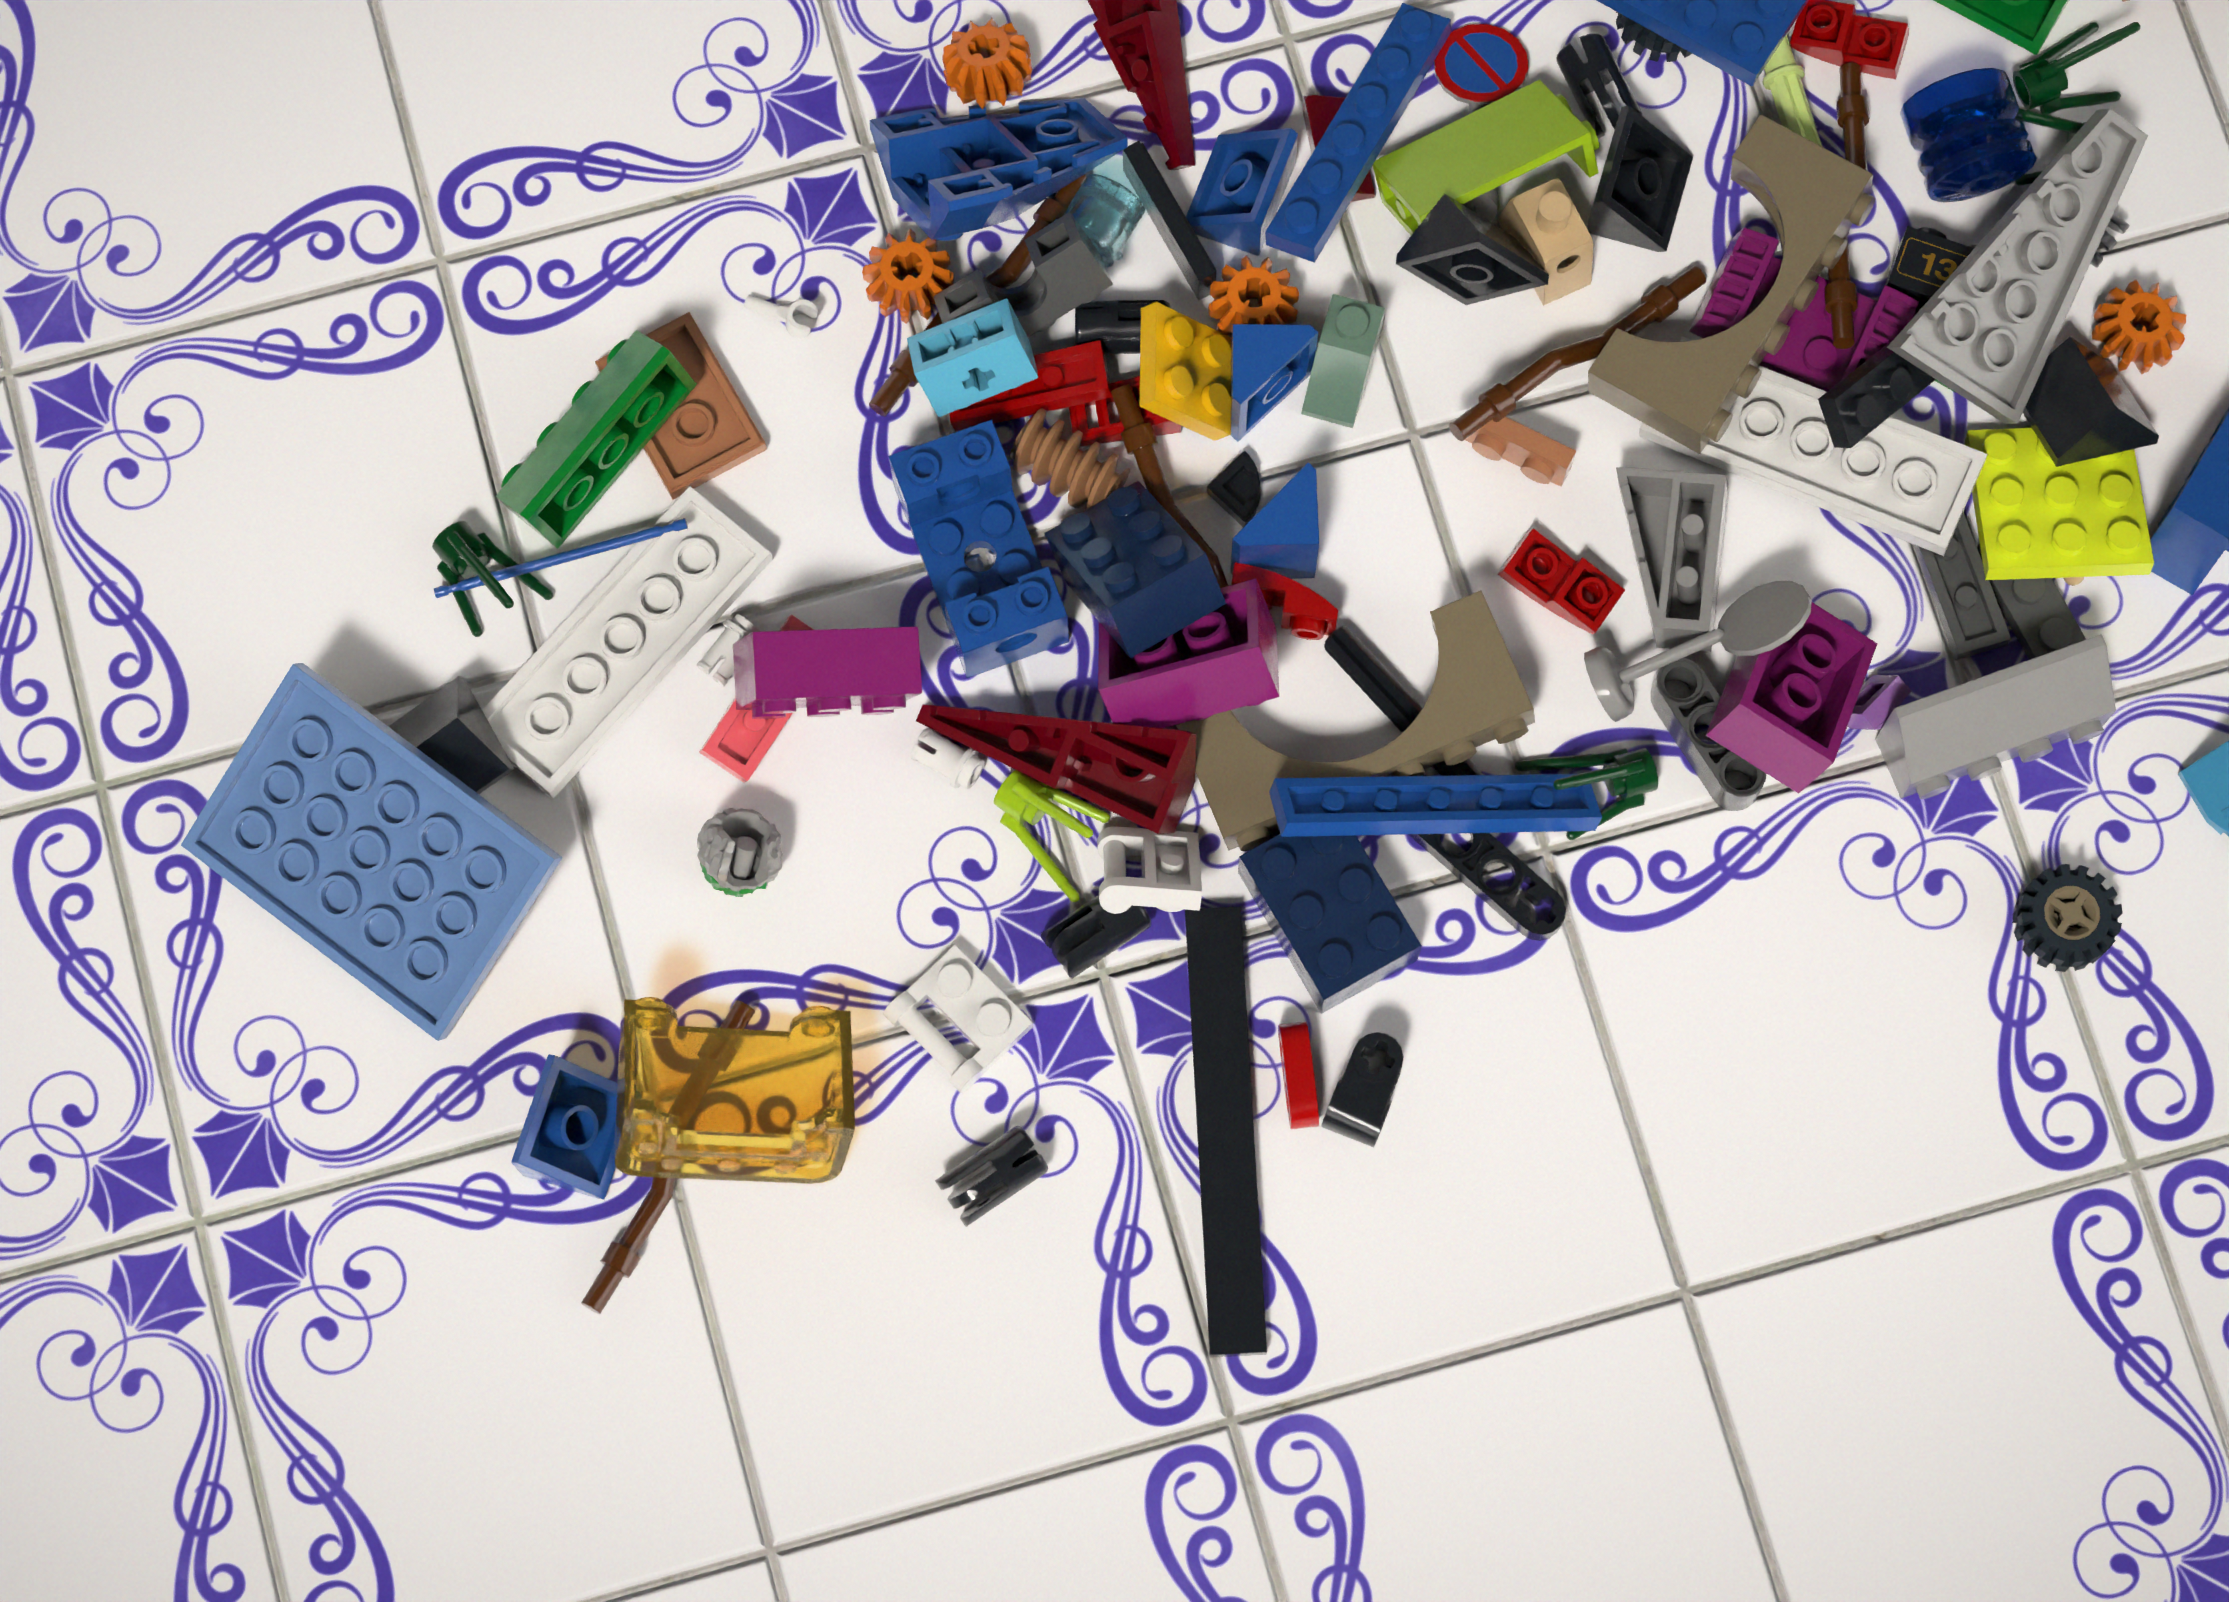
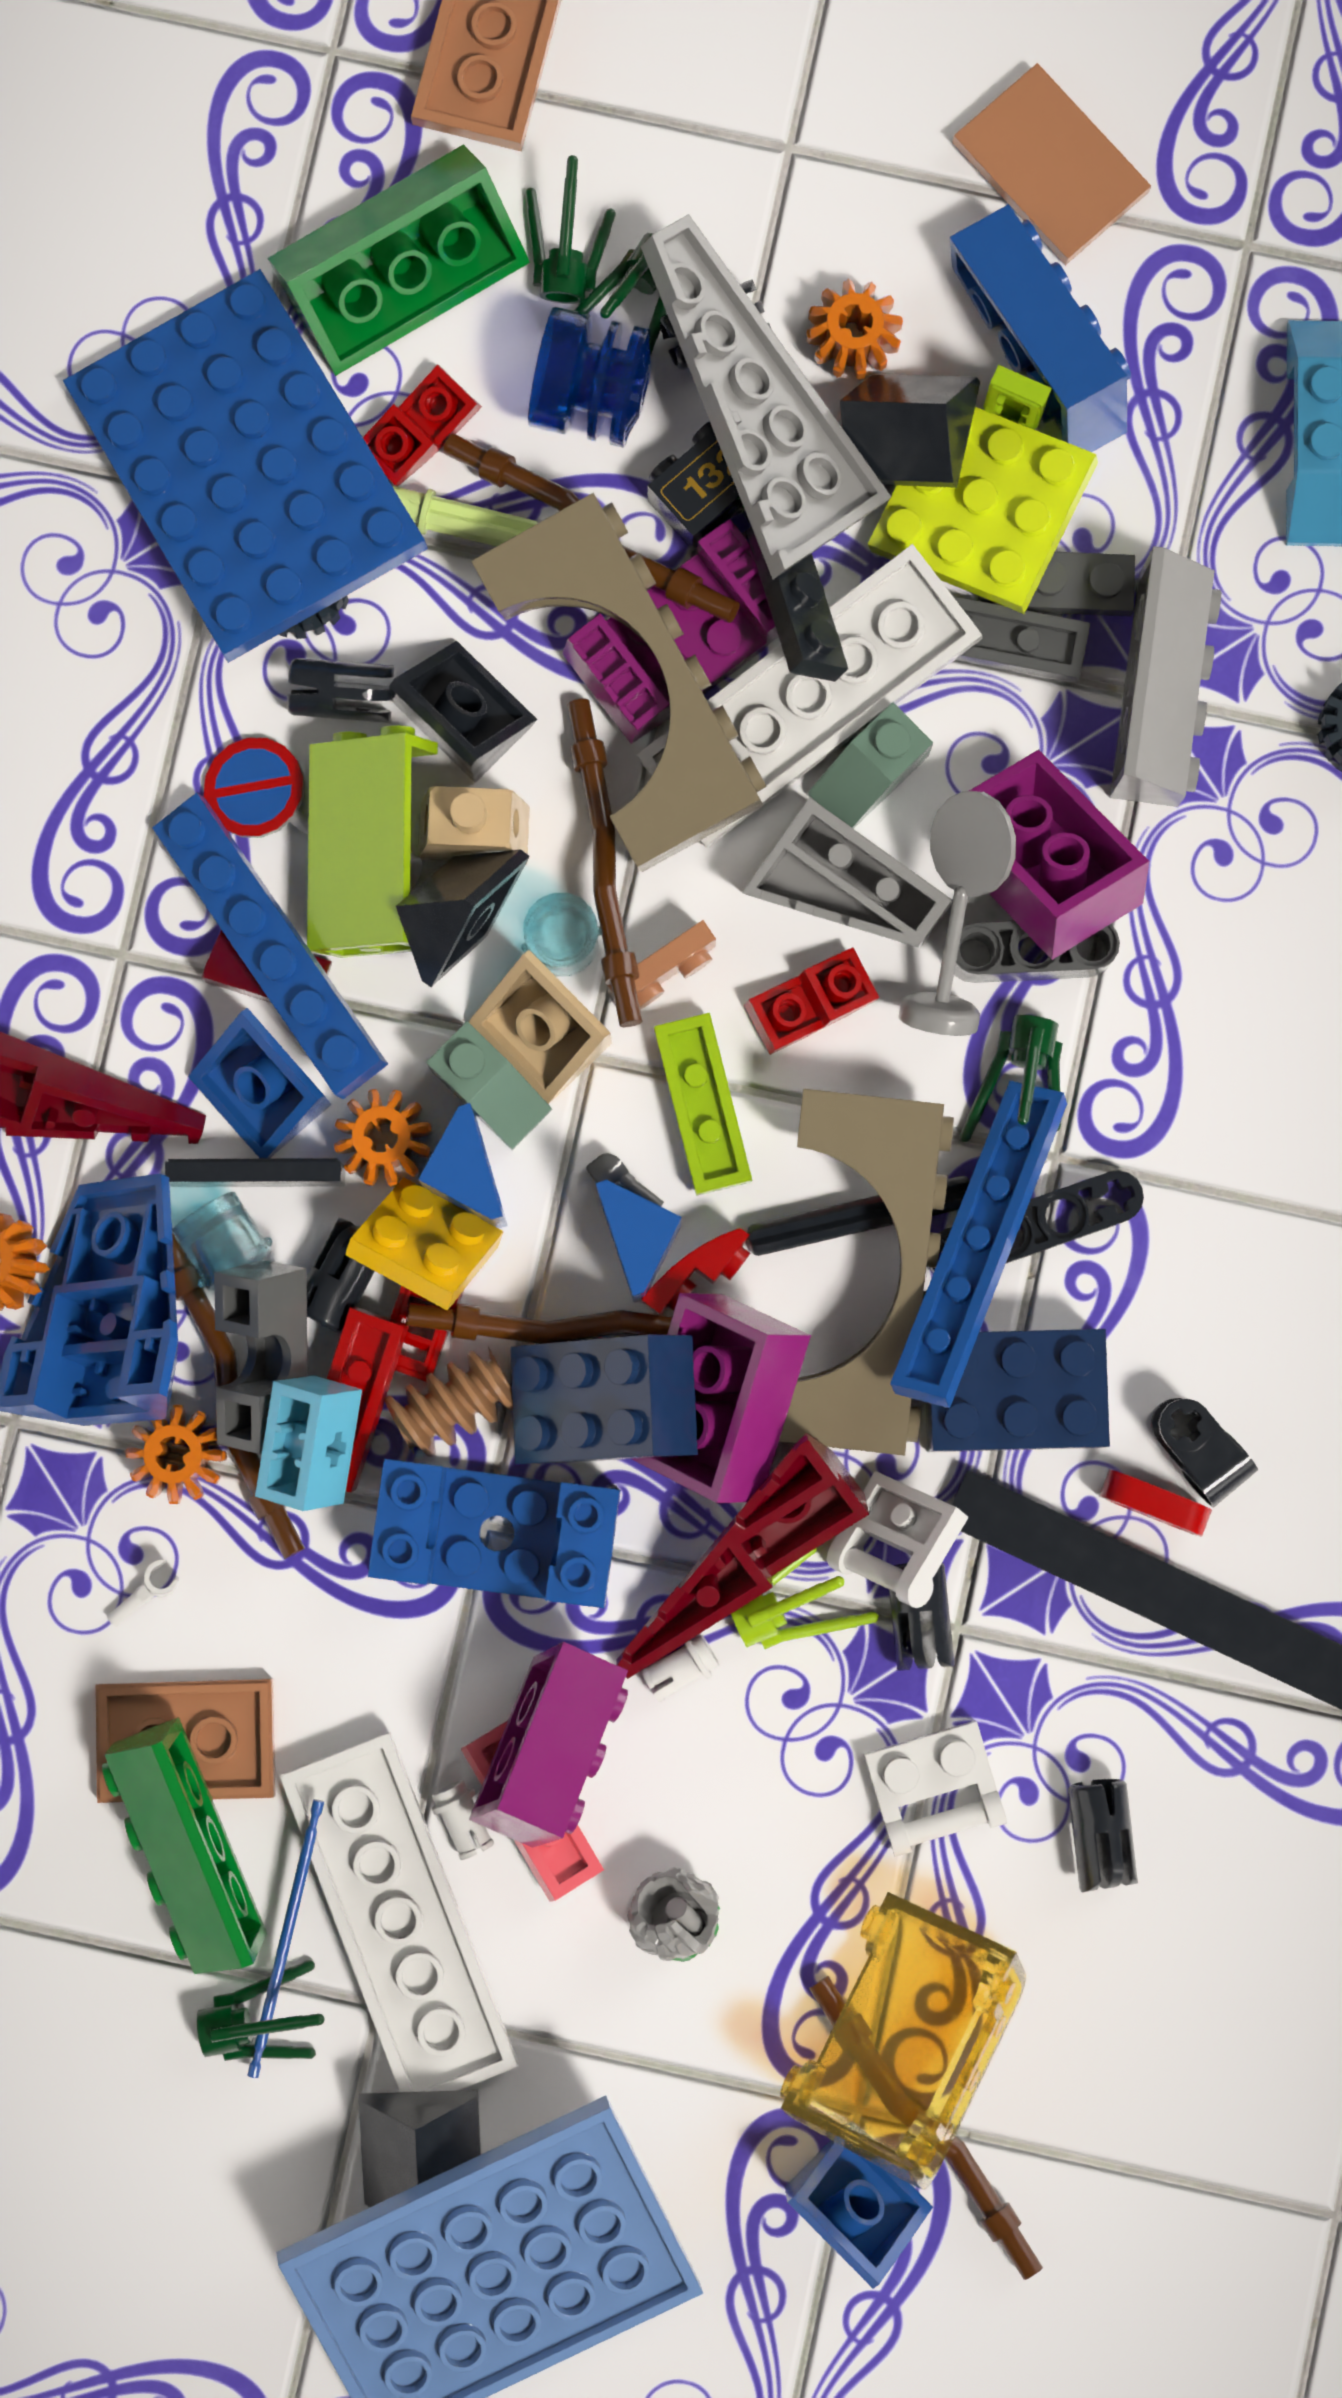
camera: 65 degrees left, 10 degrees up
(1238, 489) = (558, 1251): black tile -> none
(1329, 496) = (612, 1169): none -> dark grey hand
(1414, 378) = (540, 1027): none -> tan slope
(1424, 537) = (703, 1104): none -> lime plate
(1498, 348) = (562, 933): none -> clear light blue piece
(1784, 526) = (872, 766): none -> sand green slope
(1877, 701) = (1089, 774): medium lavender plate -> none
(2159, 474) = (1016, 397): none -> lime plate

